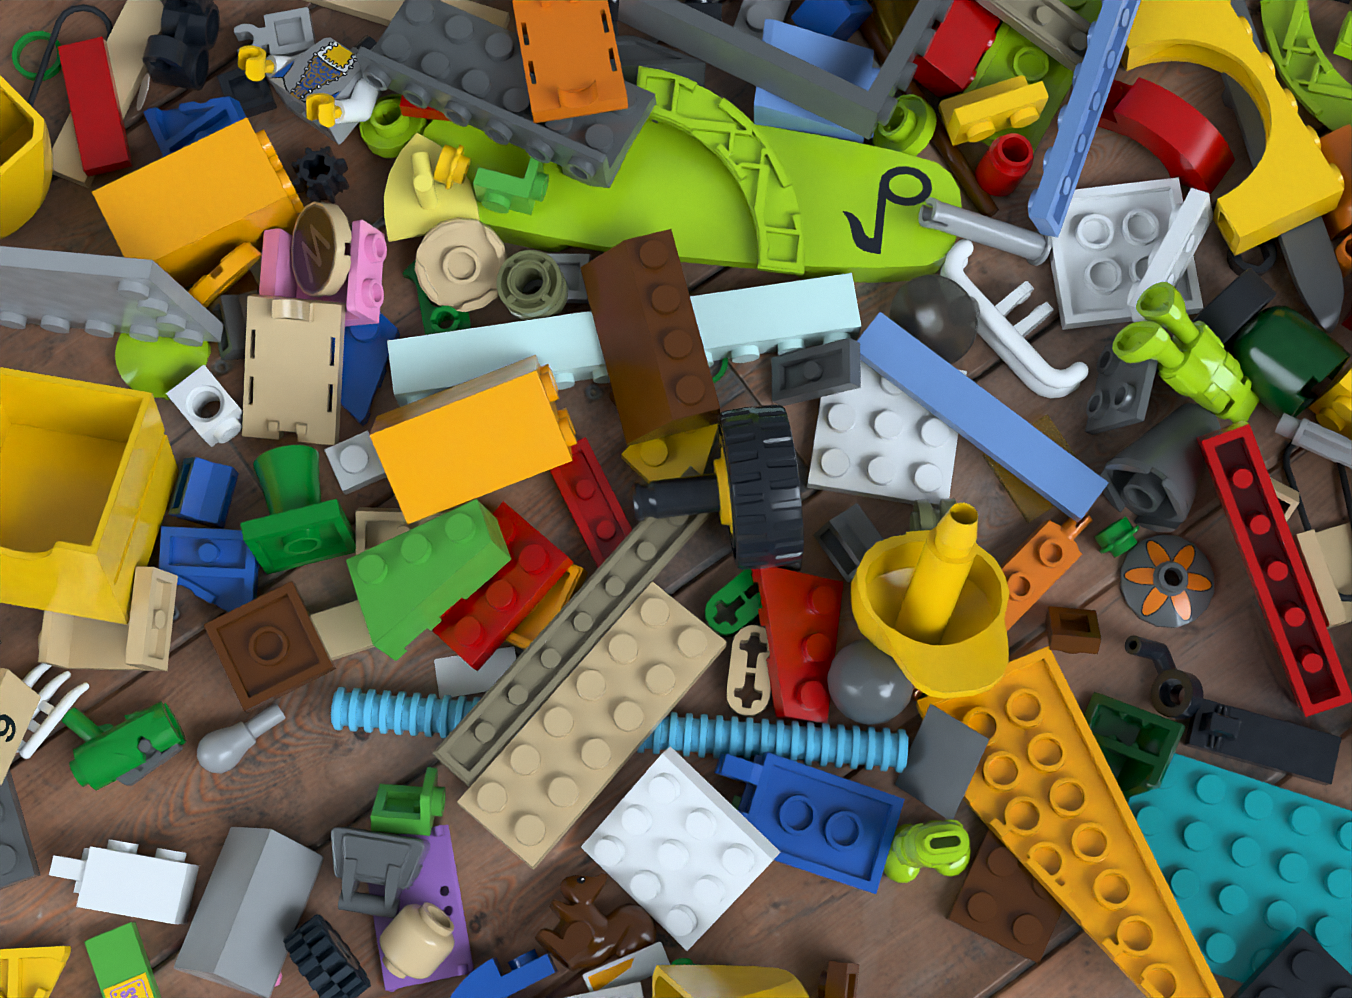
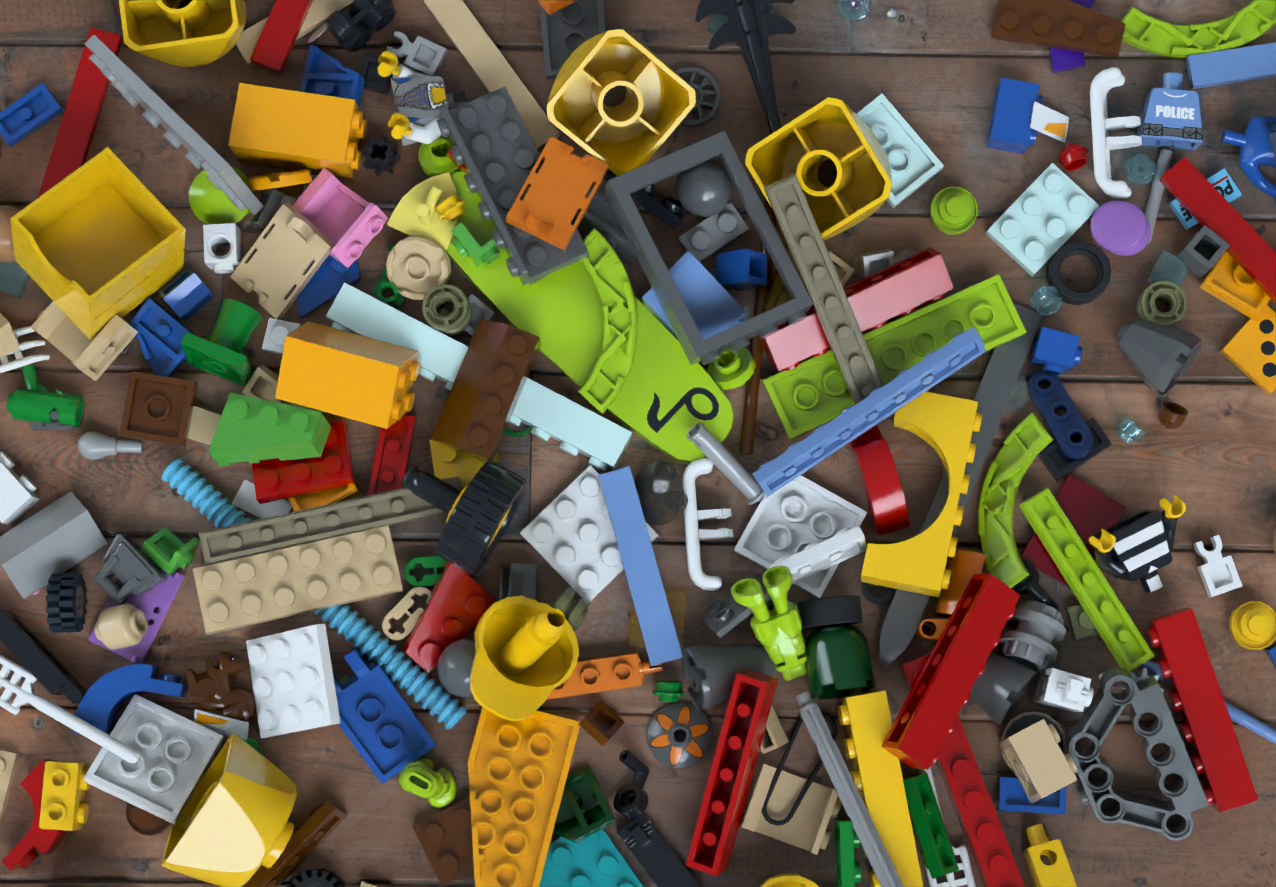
camera: 40 degrees right, 5 degrees up
(320, 249) = (341, 204): tile -> none
(816, 372) = (569, 474): dark grey plate -> none
(942, 762) = (470, 741): dark grey sticker -> none
(992, 109) = (785, 393): yellow bracket -> none
(1004, 164) = (778, 428): red brick -> none

